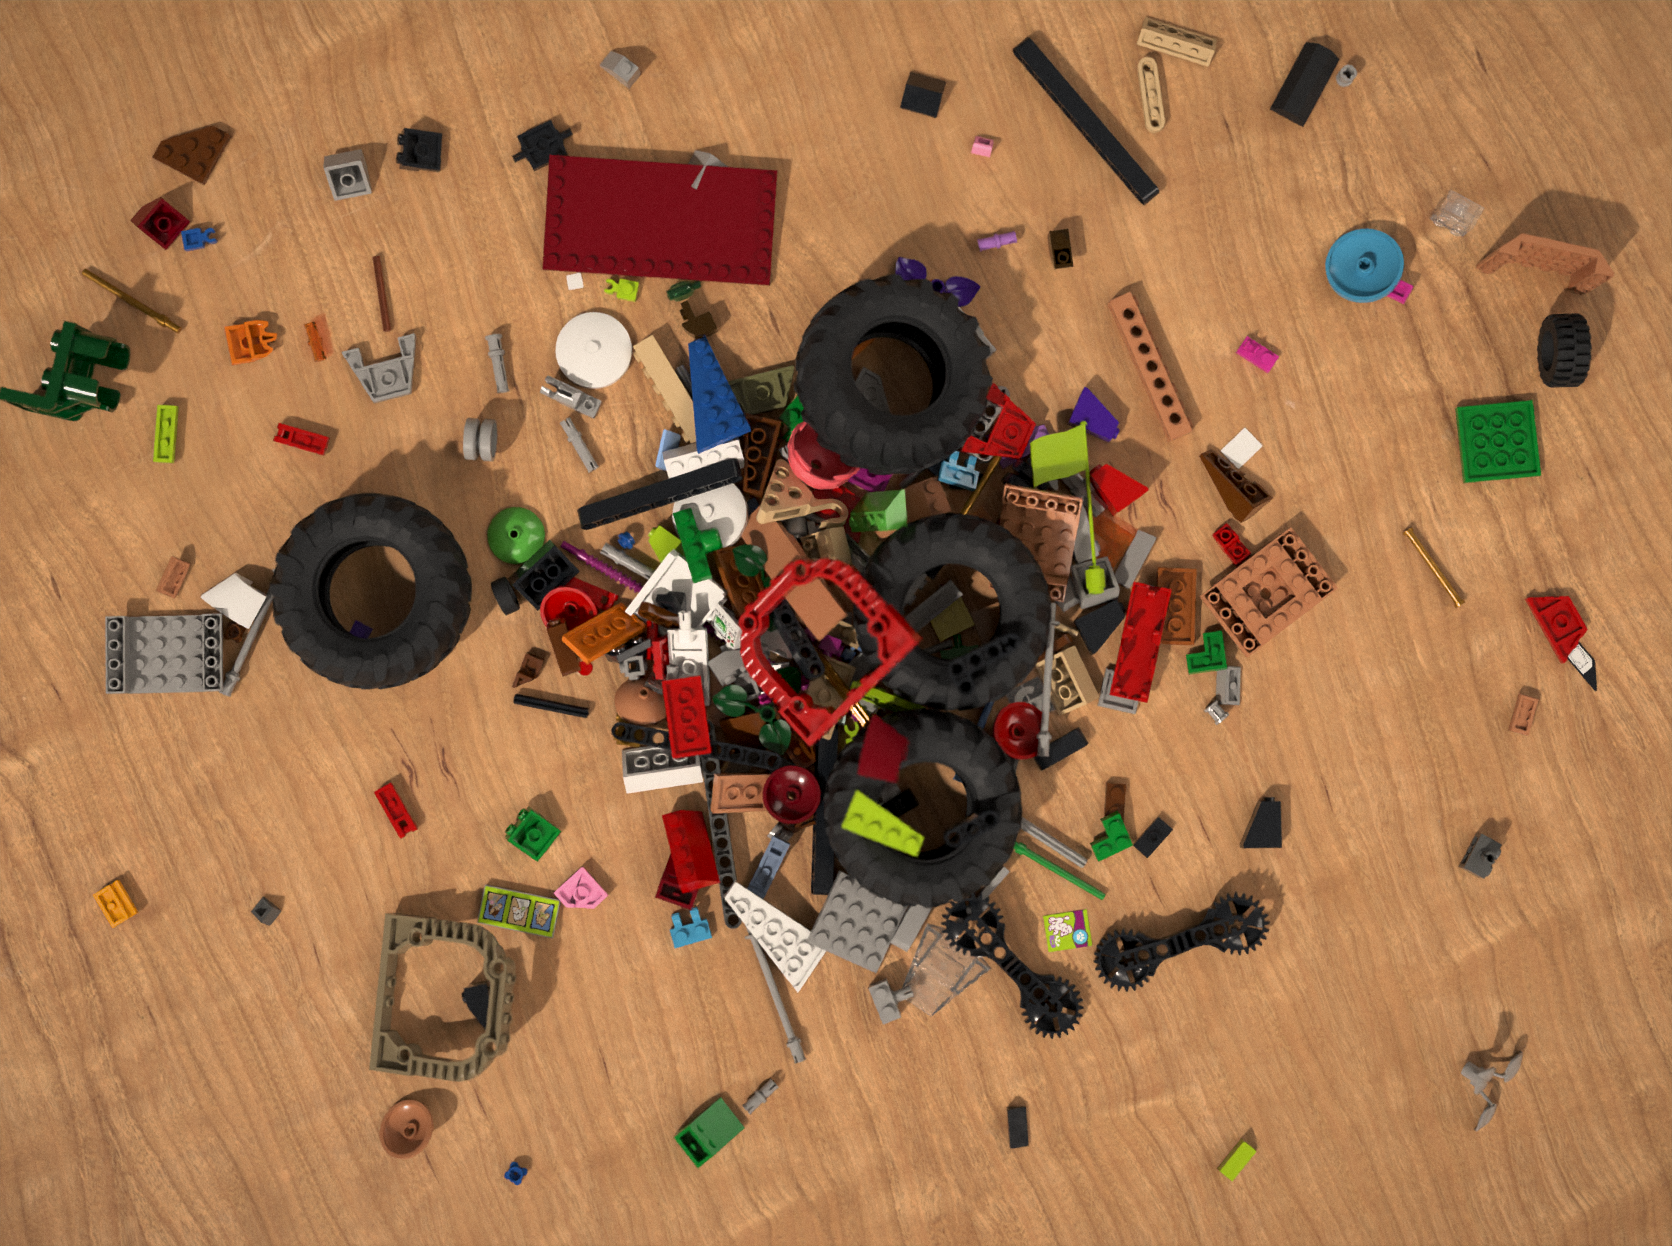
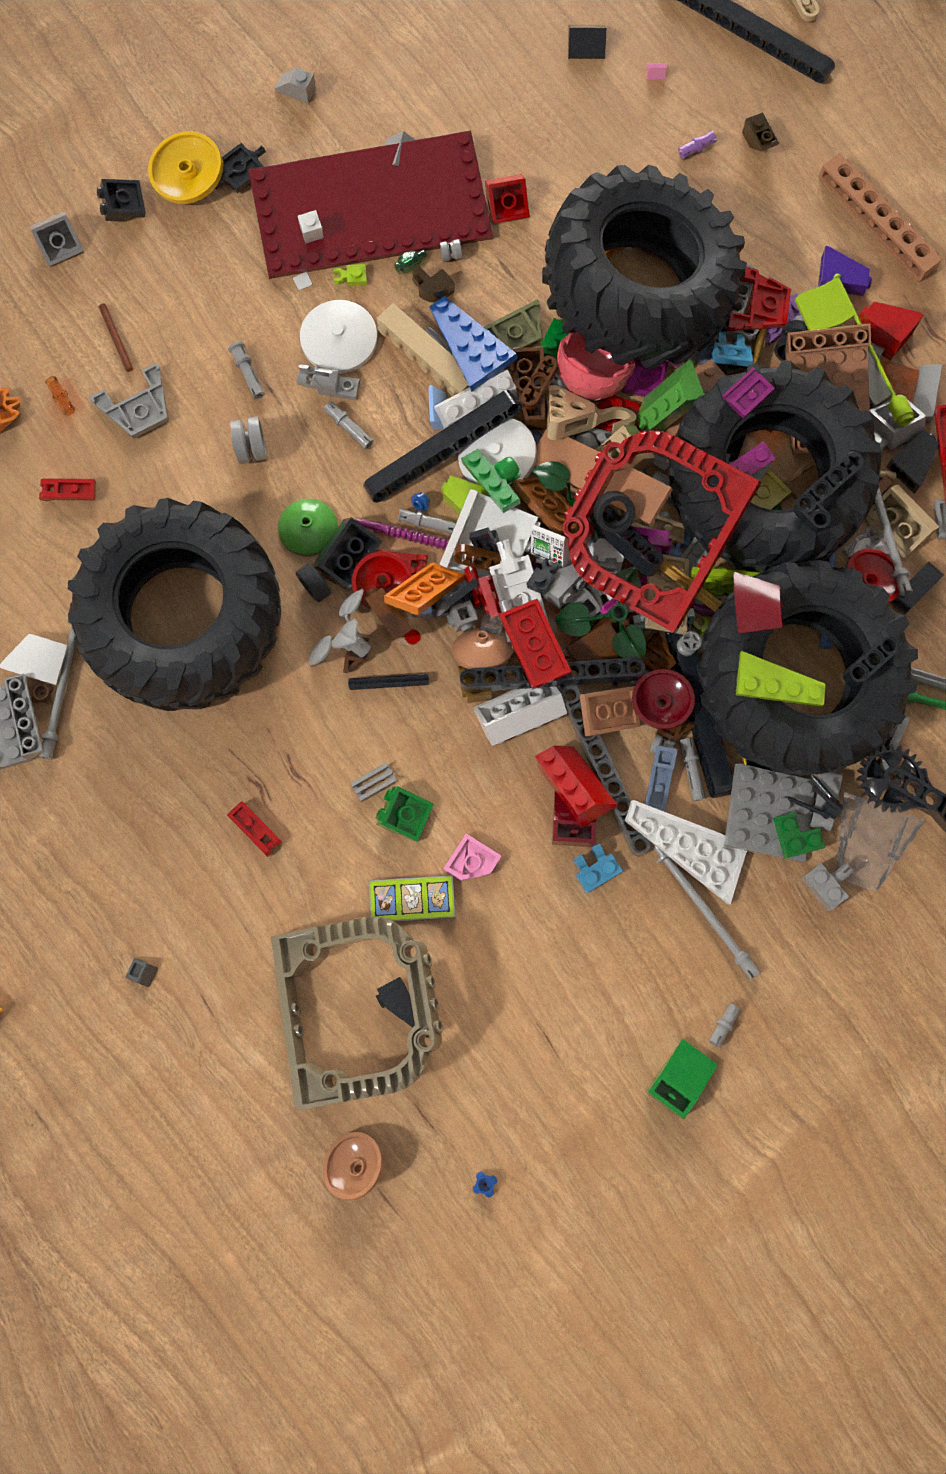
camera: 10 degrees left, 10 degrees down
(489, 134) = (185, 167): none -> yellow dish
(497, 800) = (354, 784): none -> light grey tile
(515, 668) = (347, 638): none -> light grey plant
(593, 234) = (310, 226): none -> white brick
(711, 658) = (542, 579): none -> black plate
(729, 289) = (455, 249): none -> light grey wheel
(780, 452) = (539, 374): none -> reddish brown beam
(784, 632) = (620, 525): none -> black tyre
(794, 249) = (507, 198): none -> red slope
(802, 862) = (690, 760): none -> light grey pin
(833, 749) = (692, 639): none -> light grey wheel
(869, 953) = (792, 840): none -> green plate
(911, 933) = (831, 805): none -> black plant
(923, 613) = (754, 460): none -> magenta plate
(937, 548) = (748, 393): none -> magenta plate

